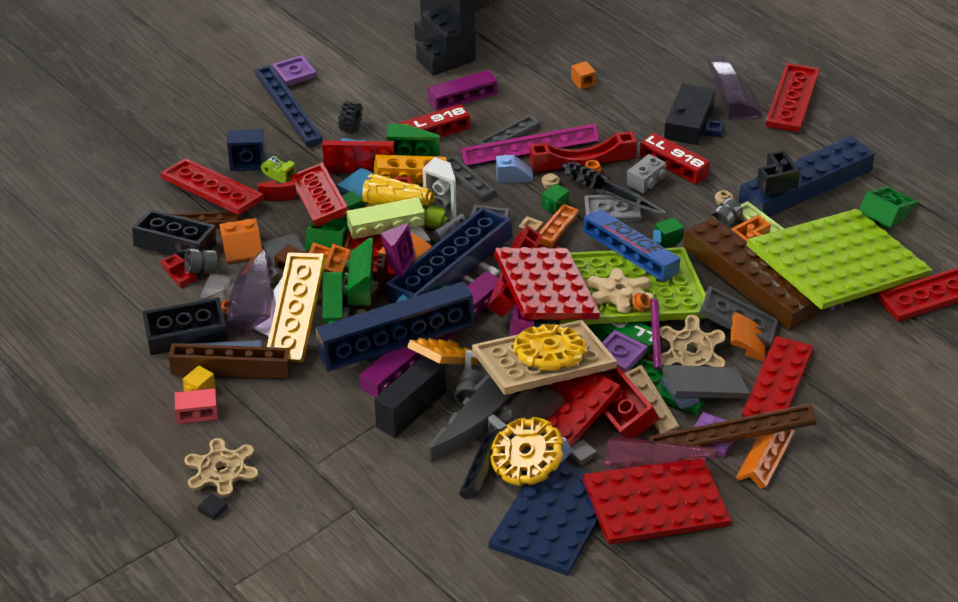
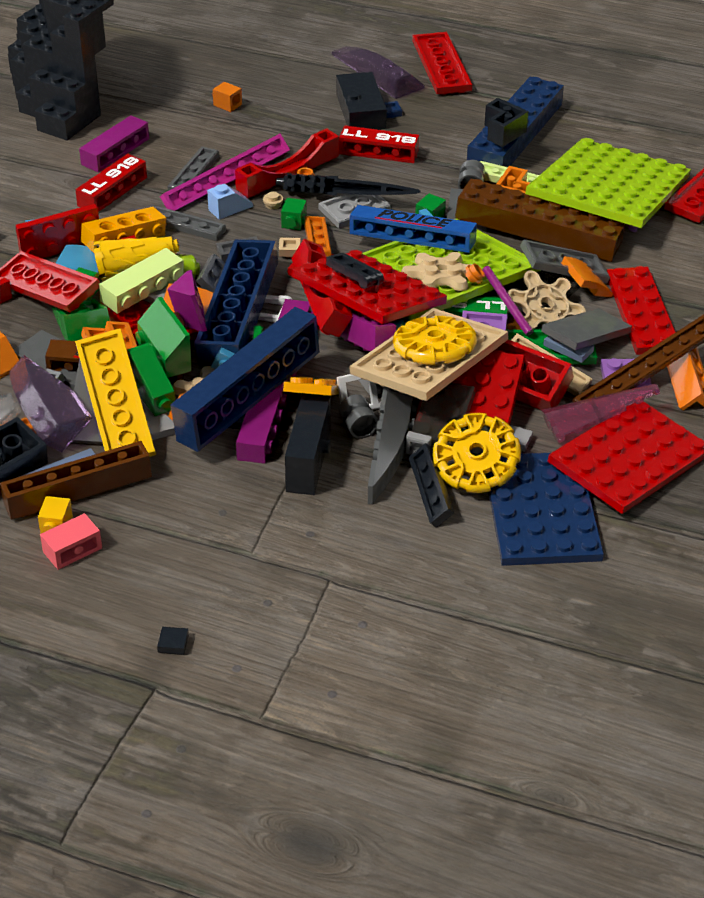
camera: 30 degrees left, 0 degrees up
(221, 457) = (157, 582): tan plate -> none
(350, 117) = (16, 199): black tyre -> none
(413, 141) = (110, 198): green slope -> none
(441, 180) = (185, 225): white slope -> none
(536, 266) = (355, 270): none -> black plate
(646, 173) = (366, 163): light grey brick -> none
(722, 195) = (452, 166): tan plate -> none
(887, 206) = (607, 129): green slope -> none

